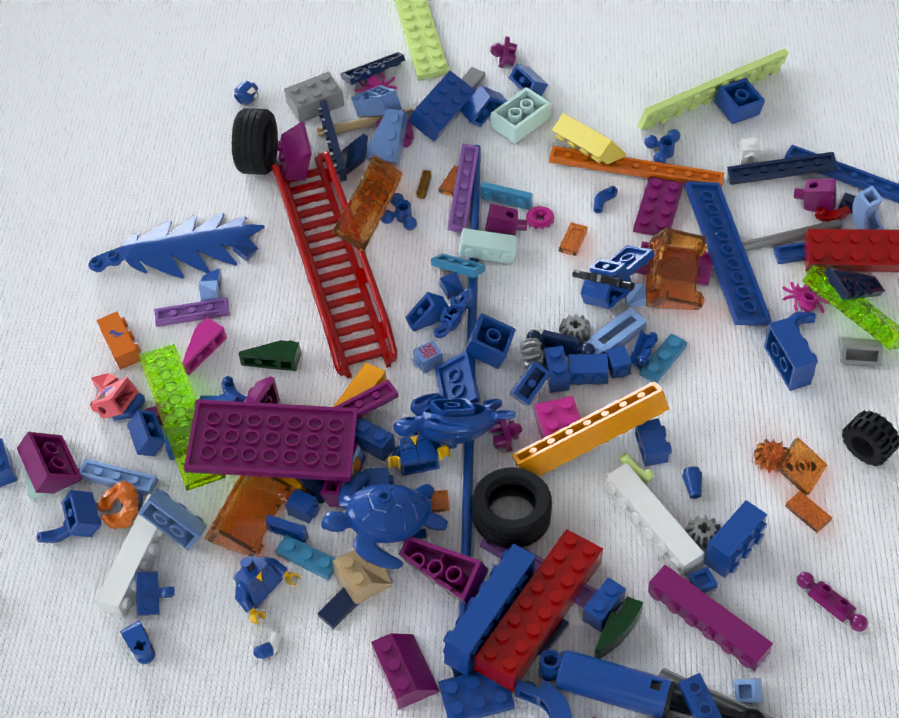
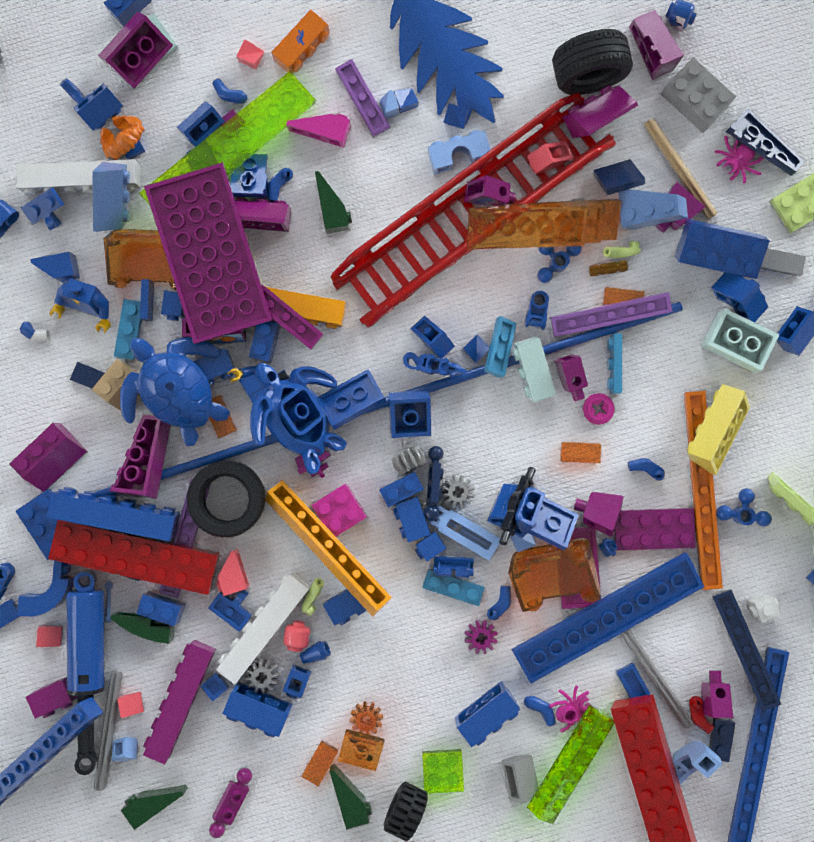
camera: 70 degrees right, 35 degrees up
(110, 475) = (154, 119): light blue tile -> none
(114, 398) = (225, 75): coral torso -> none
(214, 600) = (59, 266): none -> blue slope
(270, 100) = (655, 44): none -> wedge
(275, 265) = (441, 154): none -> light blue arch
(313, 195) = (550, 156): none -> coral slope
(320, 237) = (489, 192): none -> magenta torso
(333, 145) = (637, 141): dark blue plate -> none
(376, 101) = (704, 172): medium blue wedge -> none
(414, 173) = (622, 252): none -> yellowish green arm
(427, 357) = (377, 357): medium blue brick -> none
(437, 235) = (536, 311): none -> blue piece
(530, 383) = (369, 470): blue brick -> none
(591, 528) = (233, 575): none -> coral slope
(626, 543) = (231, 610): none -> blue plate
(630, 230) = (600, 511): none -> magenta torso
(671, 490) = (296, 636): none -> coral head
(691, 324) = (502, 604): none -> blue arm
(700, 666) = (130, 704): none -> coral slope
(716, 346) = (487, 640): none -> magenta gear
(718, 503) = (293, 690): none -> blue brick
(817, 685) = (149, 803): none -> dark green slope
(838, 407) = (443, 771): none -> clear neon green plate
(852, 491) = (351, 801): none -> dark green slope
(853, 285) = (590, 762): dark blue wing -> none

